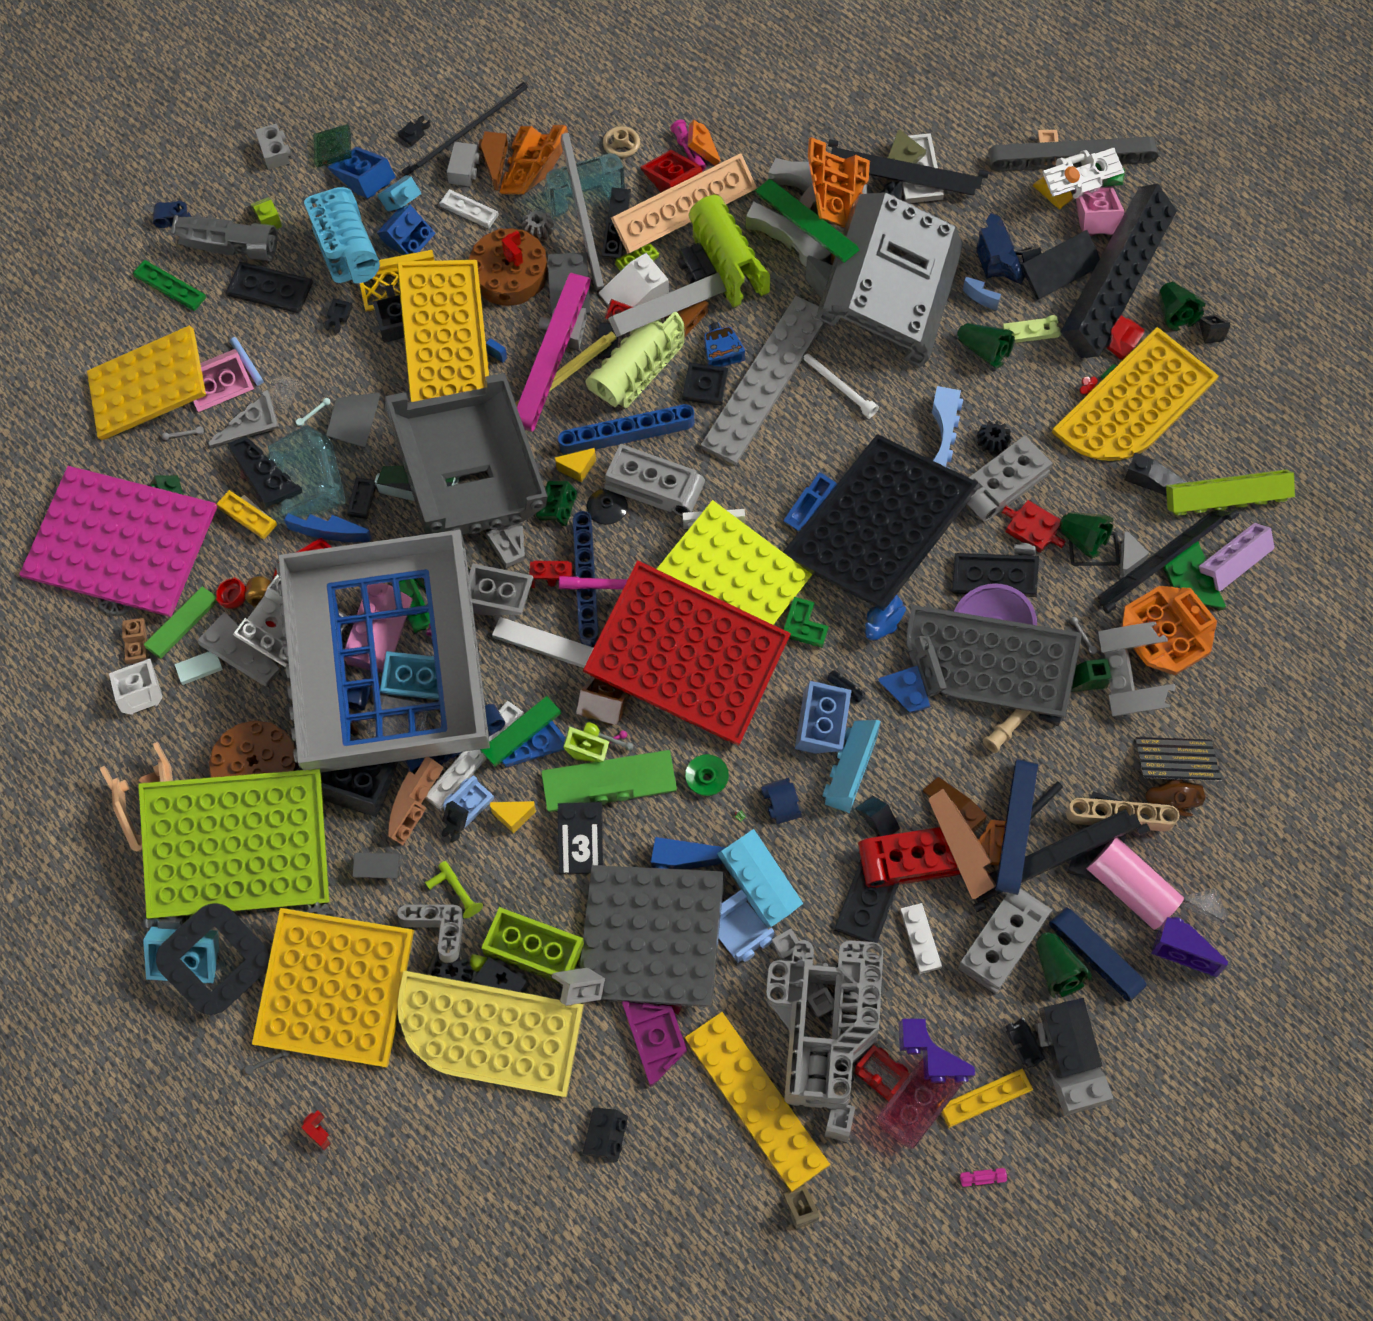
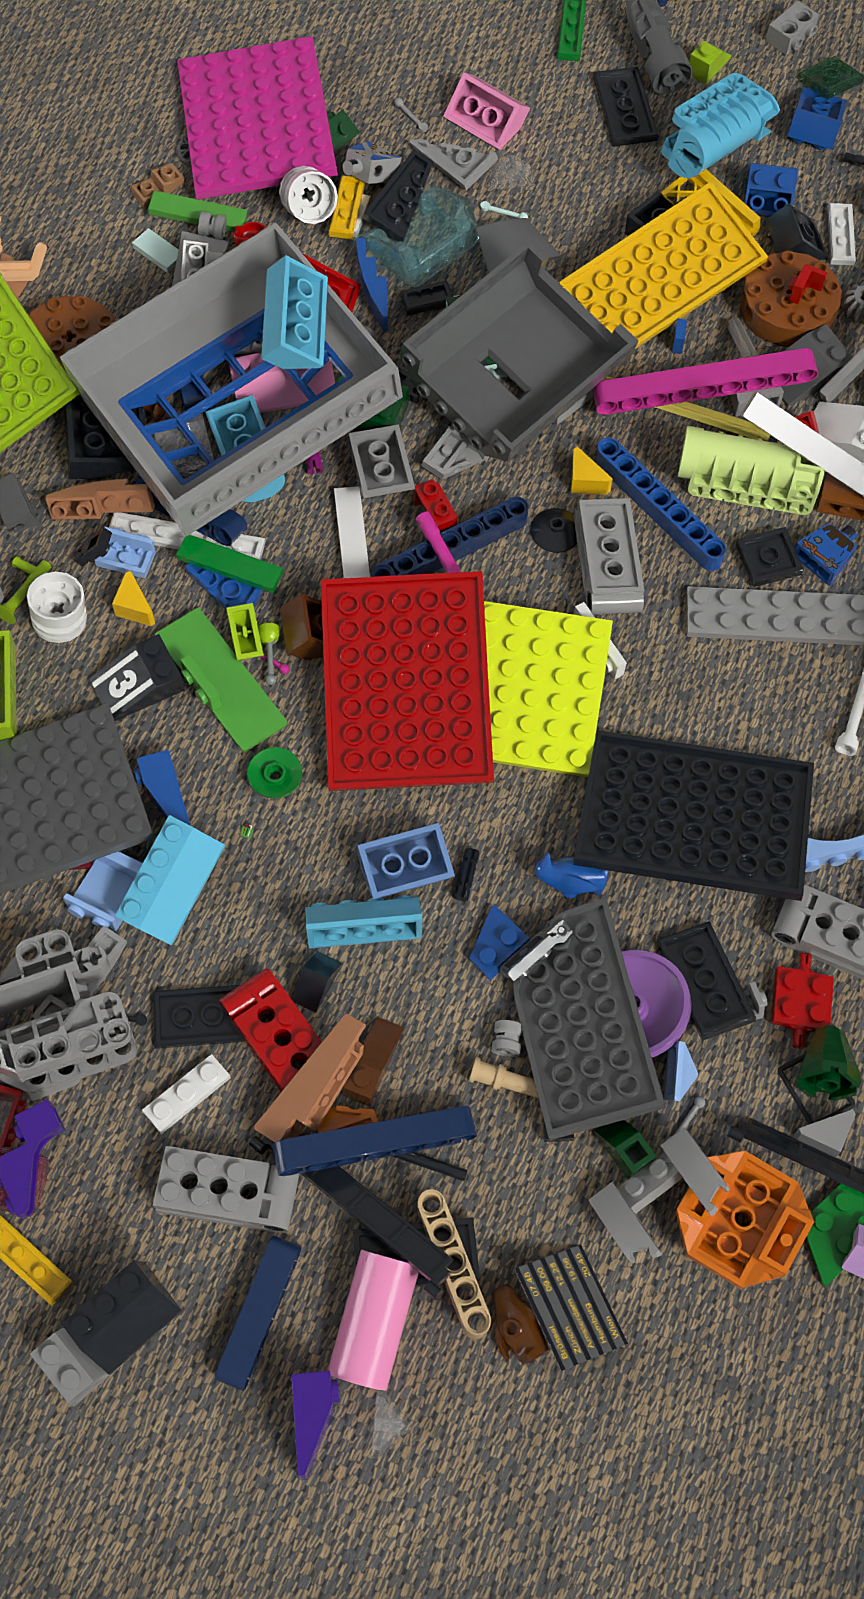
camera: 60 degrees right, 0 degrees up
(136, 687) = (103, 206): white slope -> none
(146, 383) = (441, 51): yellow plate -> none
(205, 615) = (212, 225): none -> light grey wheel
(220, 478) = (364, 161): none -> light grey torso
(226, 533) = (320, 199): none -> white wheel
(246, 361) = (526, 127): light blue bar -> none
(338, 312) = (633, 176): black plate -> none
(376, 577) = (294, 315): none -> medium azure slope
(401, 192) = (813, 159): medium azure torso -> none
(456, 237) = (795, 232): none -> black slope
(491, 855) = (57, 607): none -> white wheel
(527, 313) = (741, 338): none -> light grey axle
(559, 502) = (529, 478): dark green bracket -> none
(782, 800) = (284, 865): dark blue cylinder -> none
(800, 626) = (515, 789): green plate -> none
(809, 501) = (683, 729): blue slope -> none
(978, 714) = (507, 1038): none -> light grey wheel
(1029, 1052) = (110, 1260): black hinge -> none
(1049, 619) = (679, 1072): none -> light blue slope
(1060, 966) = (218, 1270): dark green cone -> none

